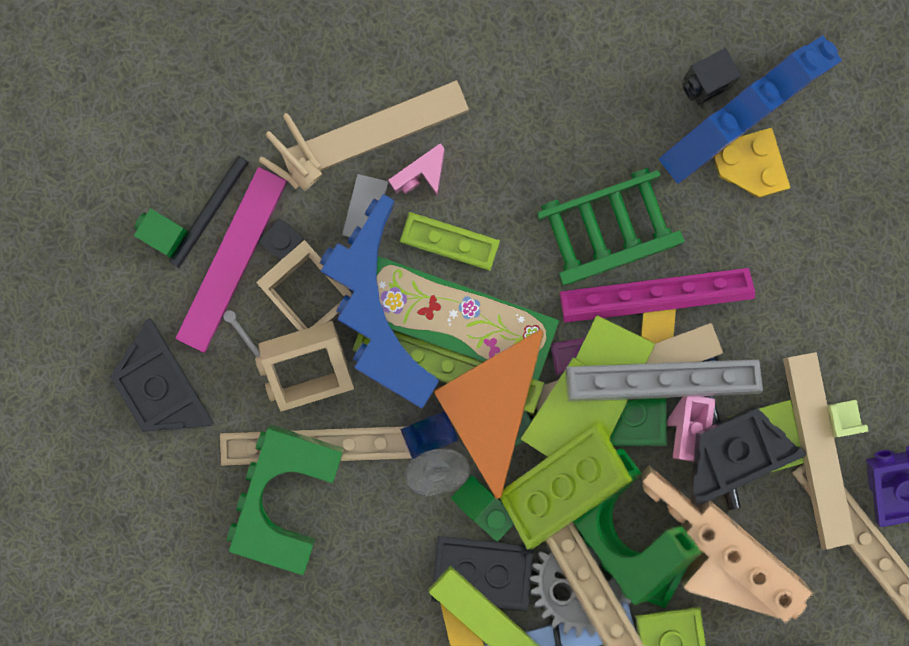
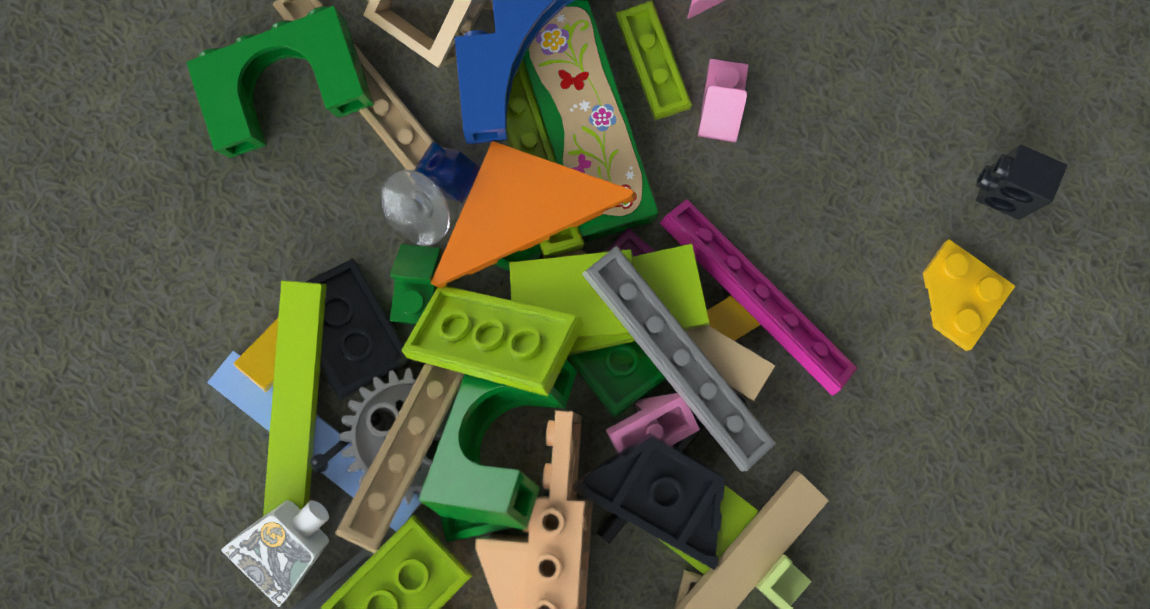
camera: 50 degrees right, 5 degrees down
(511, 217) = (723, 100): none -> bright pink slope
(633, 247) = (786, 238): green fence -> none
(750, 108) = (977, 225): blue arch -> none

